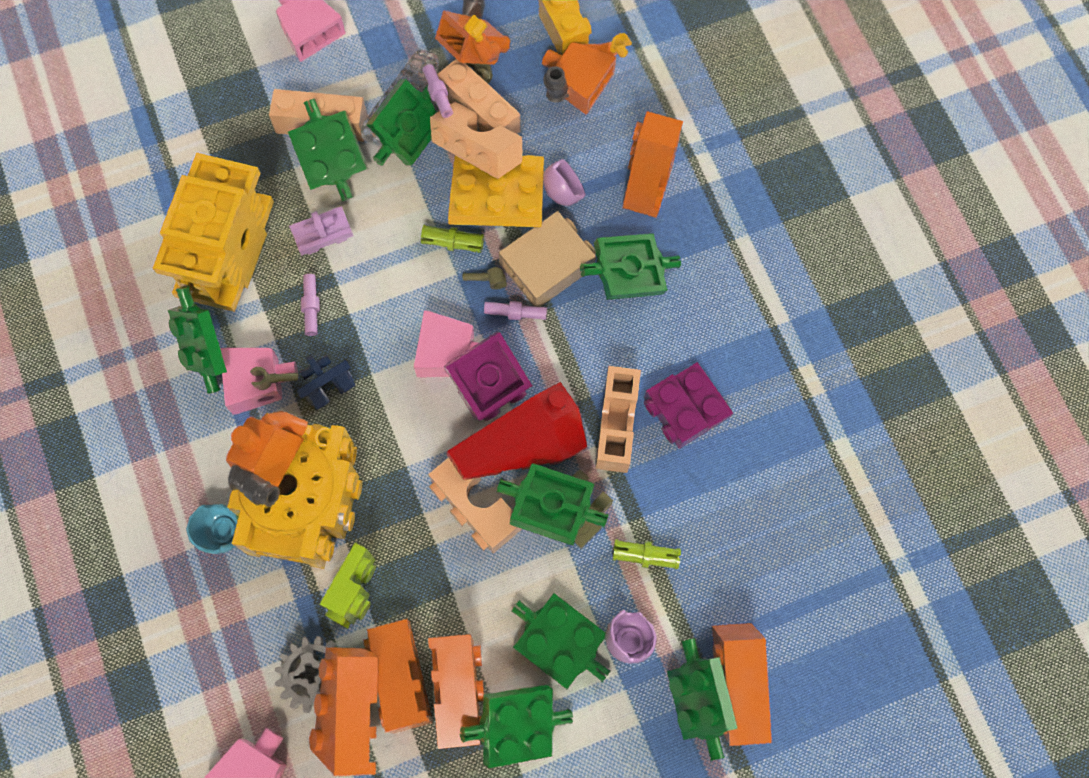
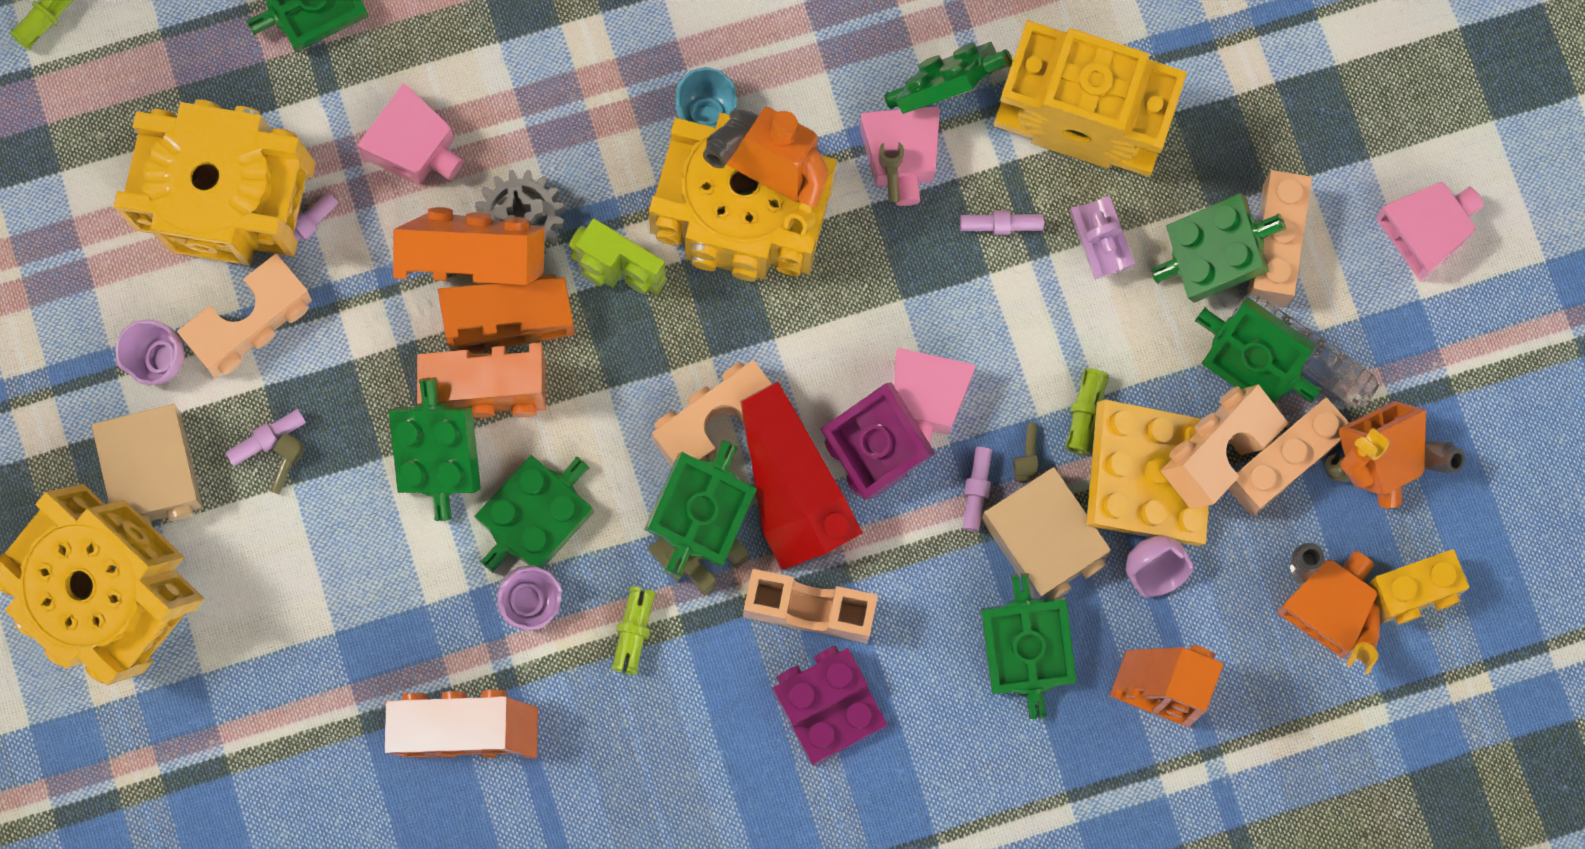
camera: 90 degrees right, 5 degrees up
(339, 375) = (880, 223): dark blue hips -> none
(437, 91) = (1297, 396): lavender bar -> none
(702, 699) = (444, 672): green plate -> none

